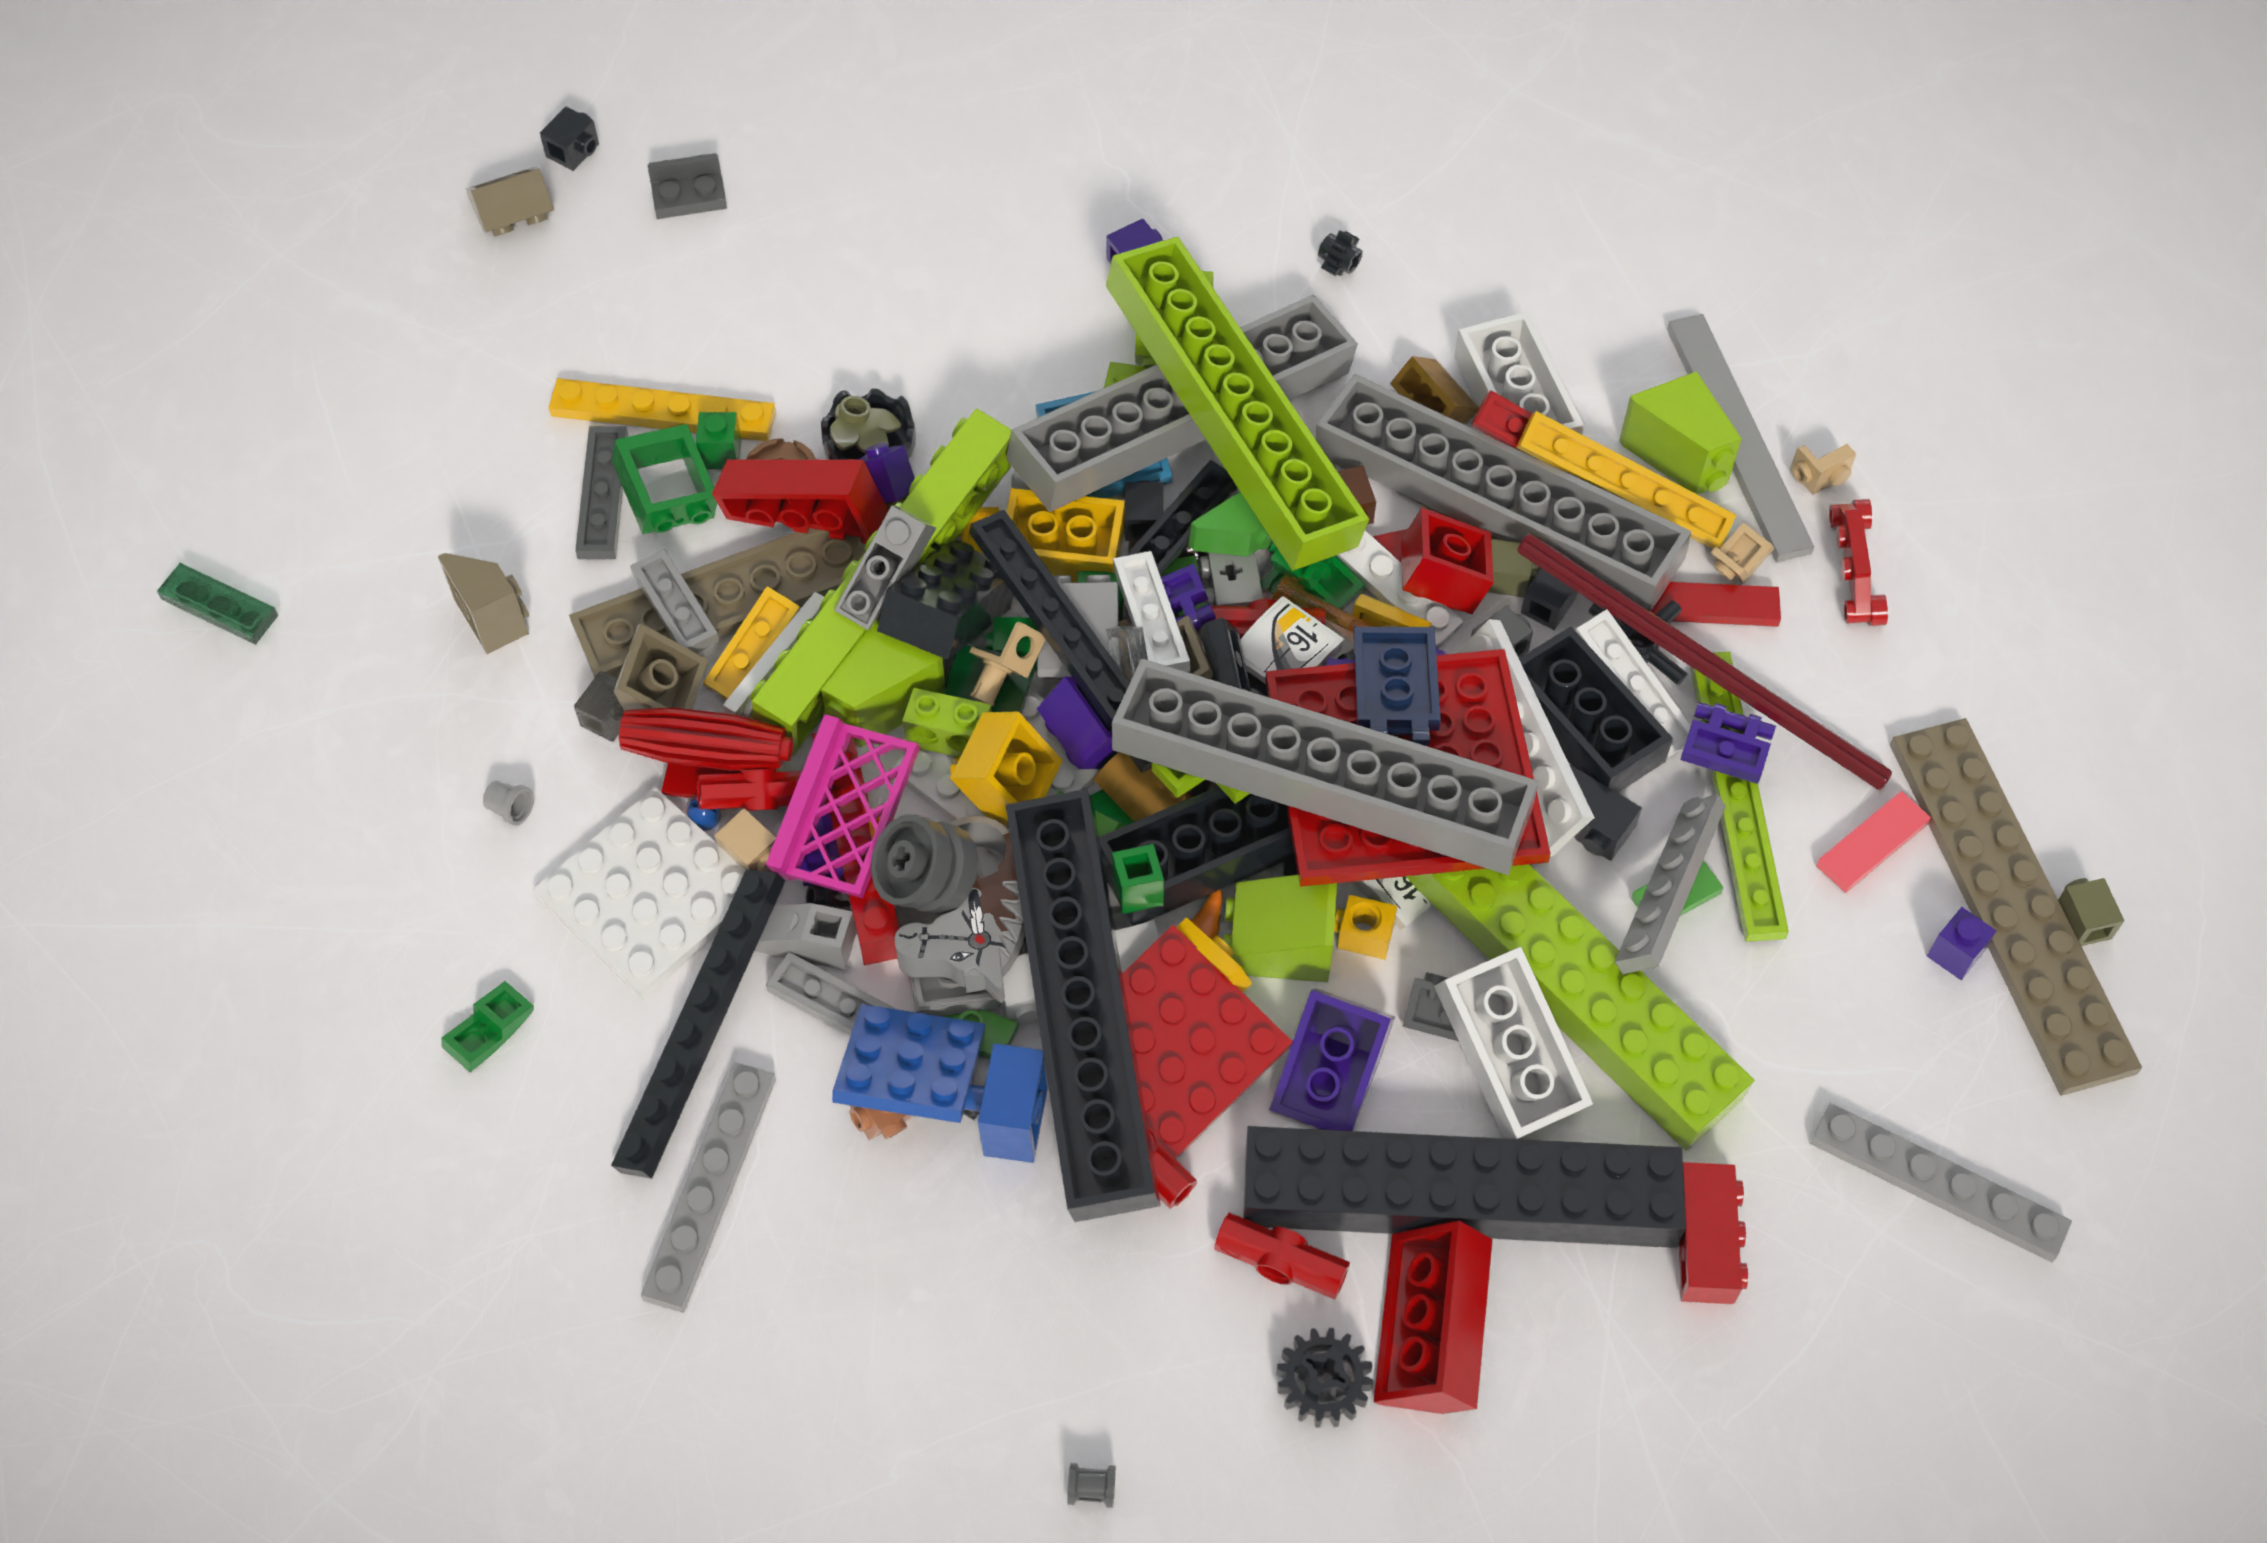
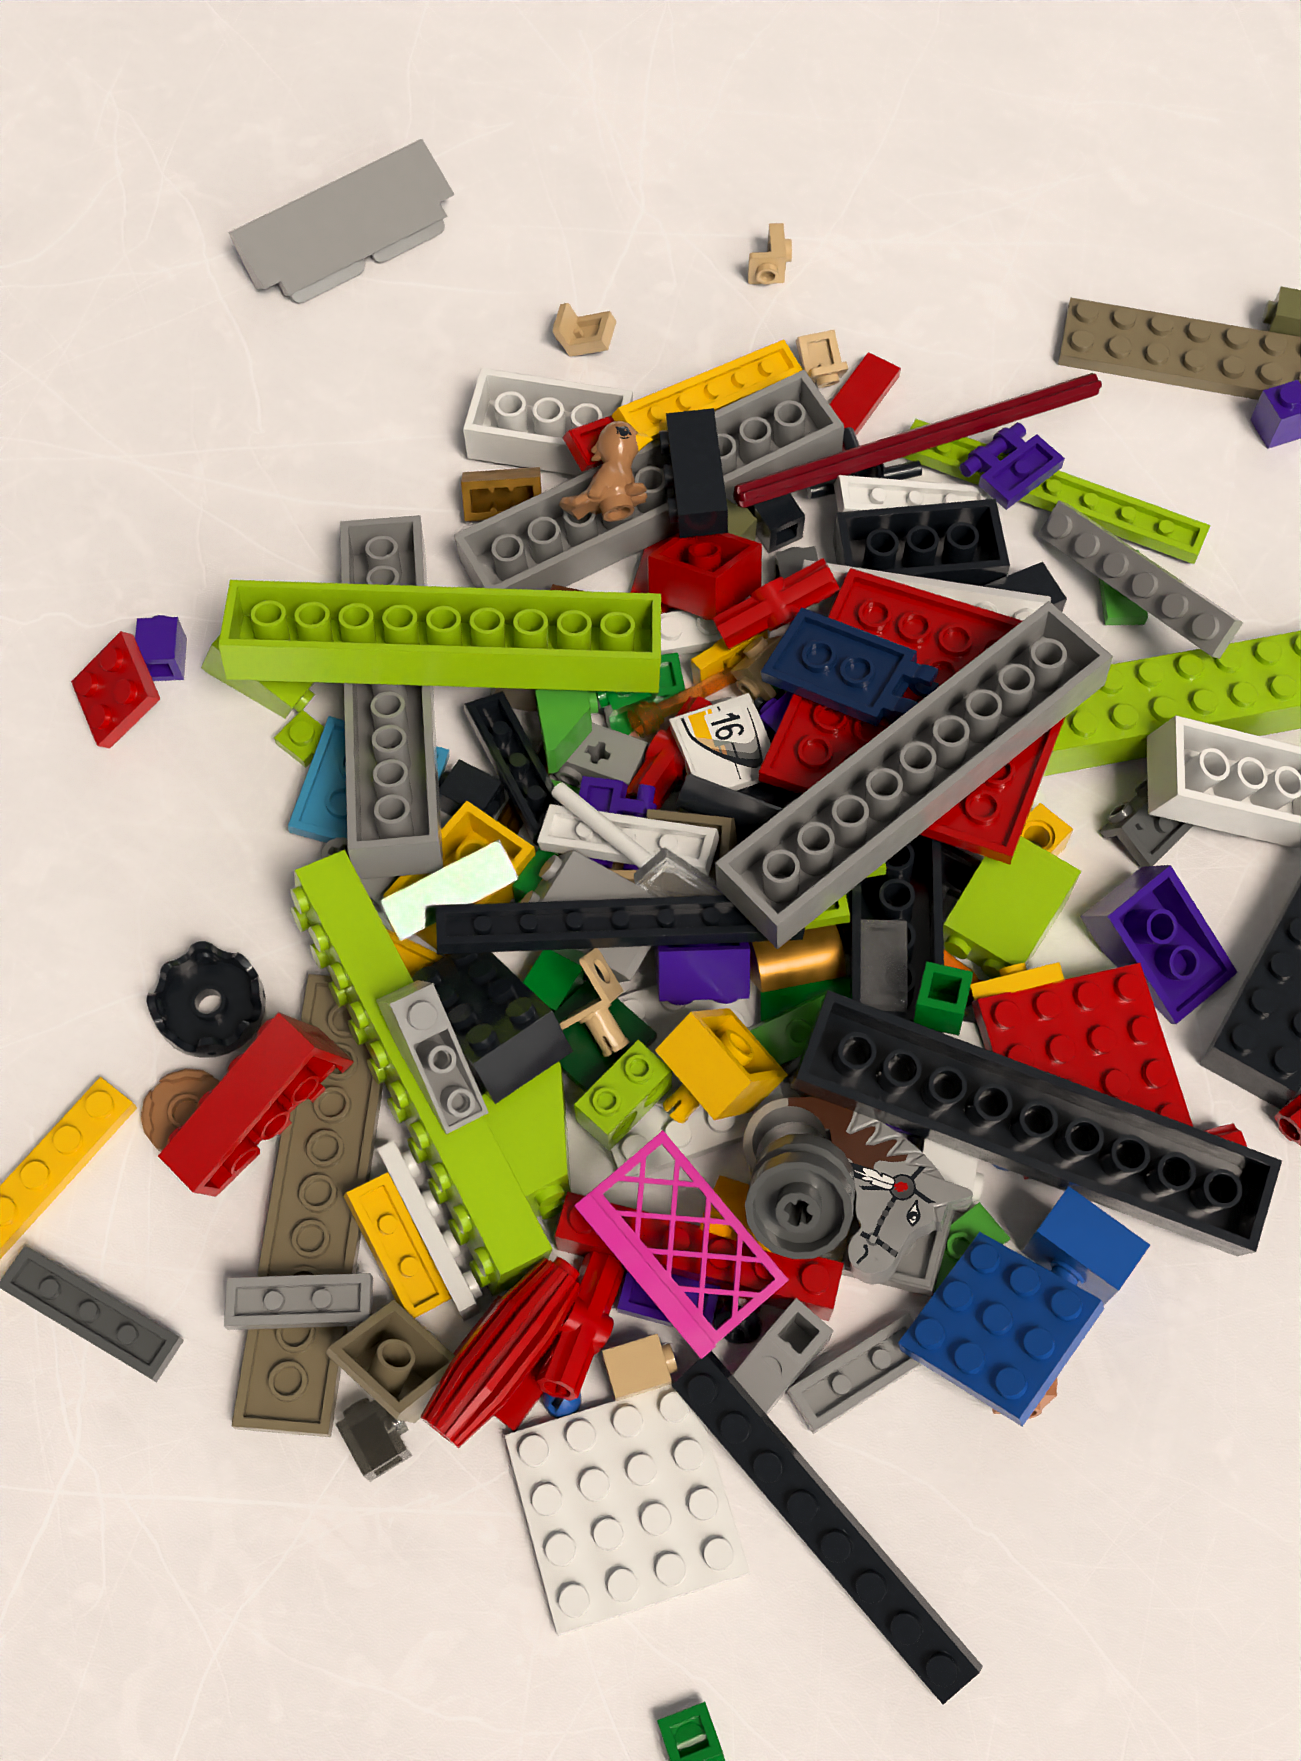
camera: 60 degrees left, 5 degrees up
(486, 600) = (159, 1512): dark tan slope -> none
(509, 801) = (429, 1609): light grey piece -> none
(654, 449) = (92, 1194): green window -> none
(708, 1188) = (1015, 1610): light grey plate -> none
(718, 438) = (112, 1155): green brick -> none
(860, 424) = (202, 1001): olive plate -> none
(889, 470) = (279, 994): dark purple brick -> none
(1038, 521) = (455, 884): none -> clear green plate
(1077, 239) = (115, 690): none -> red plate
(1148, 585) = (601, 825): none -> white bar
(1166, 829) = (883, 964): none -> clear tile
(1340, 253) = (294, 482): black gear -> none
(1439, 611) = (776, 603): none -> red piece
(1467, 446) = (613, 485): none -> medium nougat animal
(1520, 499) = (694, 473): none -> black brick
(1630, 161) = (331, 230): none -> light grey slope
(1632, 367) = (583, 333): none -> tan bracket
(1682, 433) = (686, 327): lime slope -> none
(1753, 463) = (692, 297): light grey tile -> none
(1855, 566) = (880, 280): red plate -> none
(1873, 841) = (1148, 424): coral tile -> none

